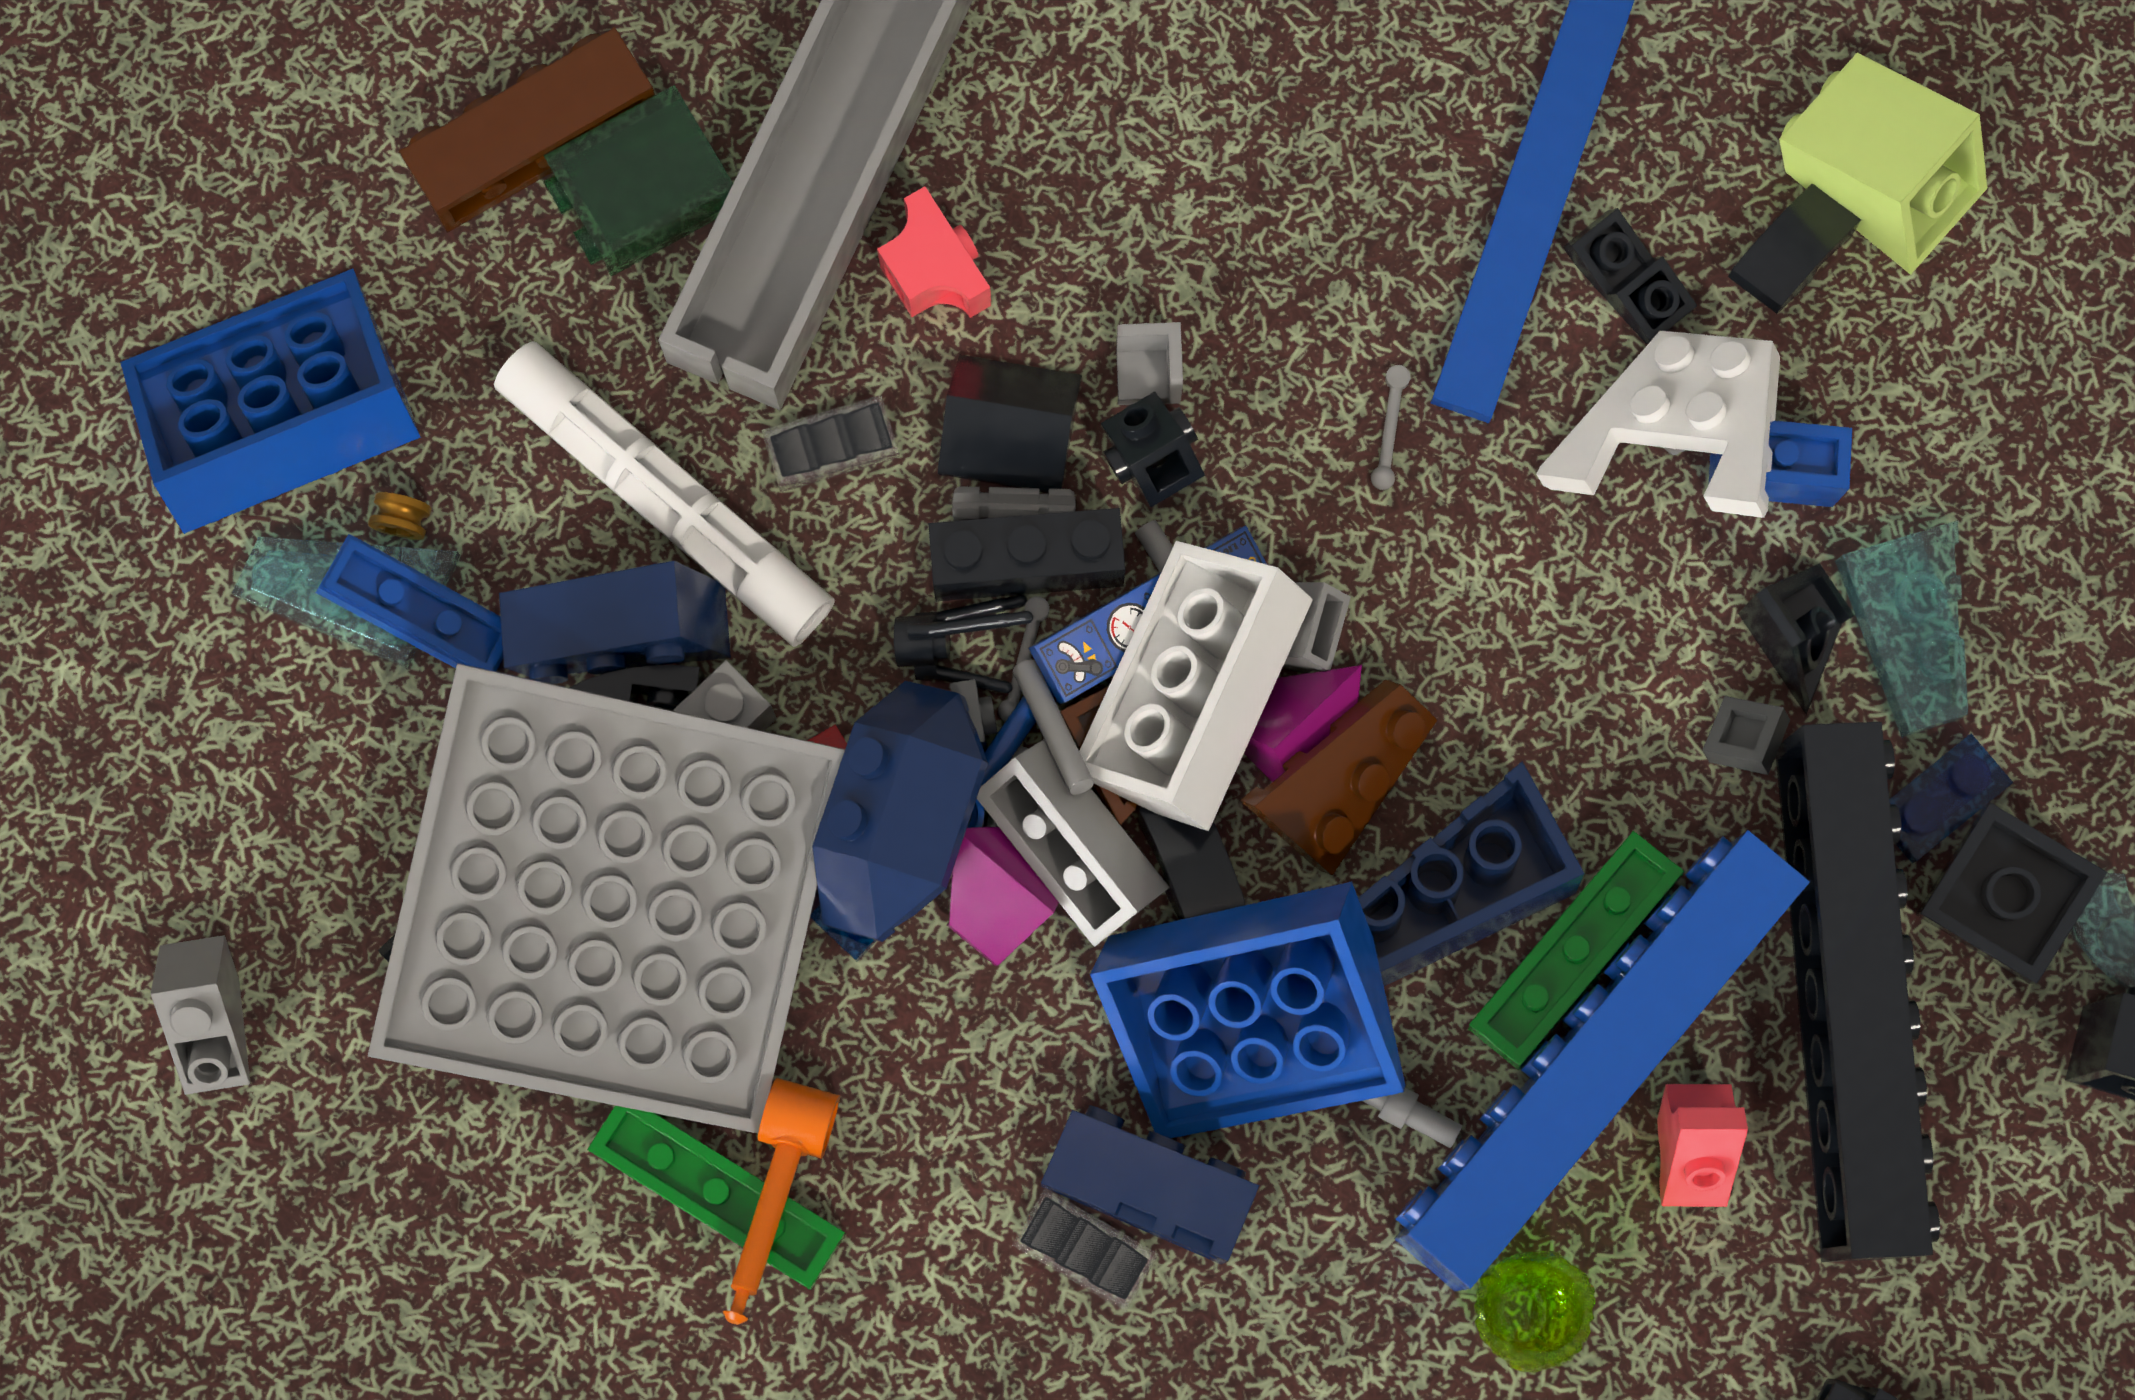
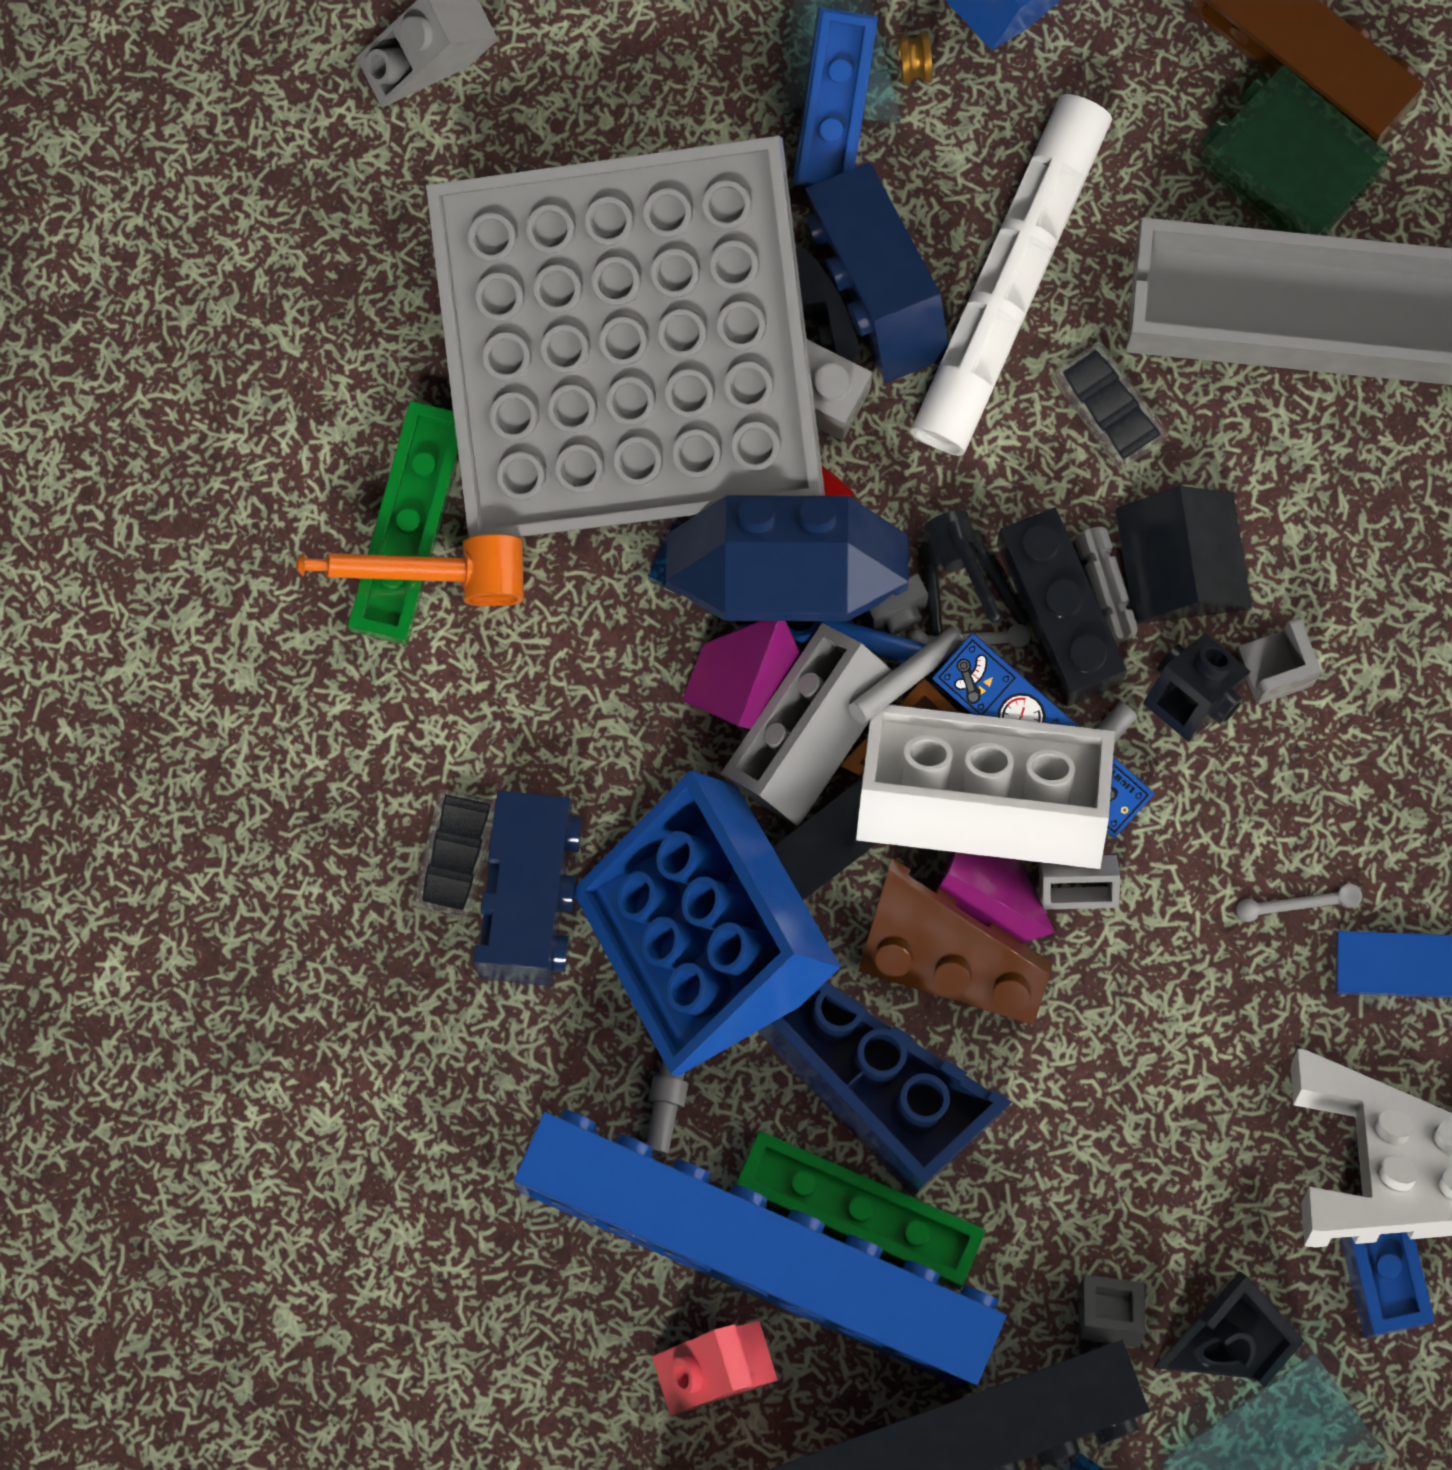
camera: 75 degrees right, 0 degrees up
(933, 262) = (1310, 438): coral brick -> none
(1534, 1310) = (518, 1258): clear neon green hair -> none

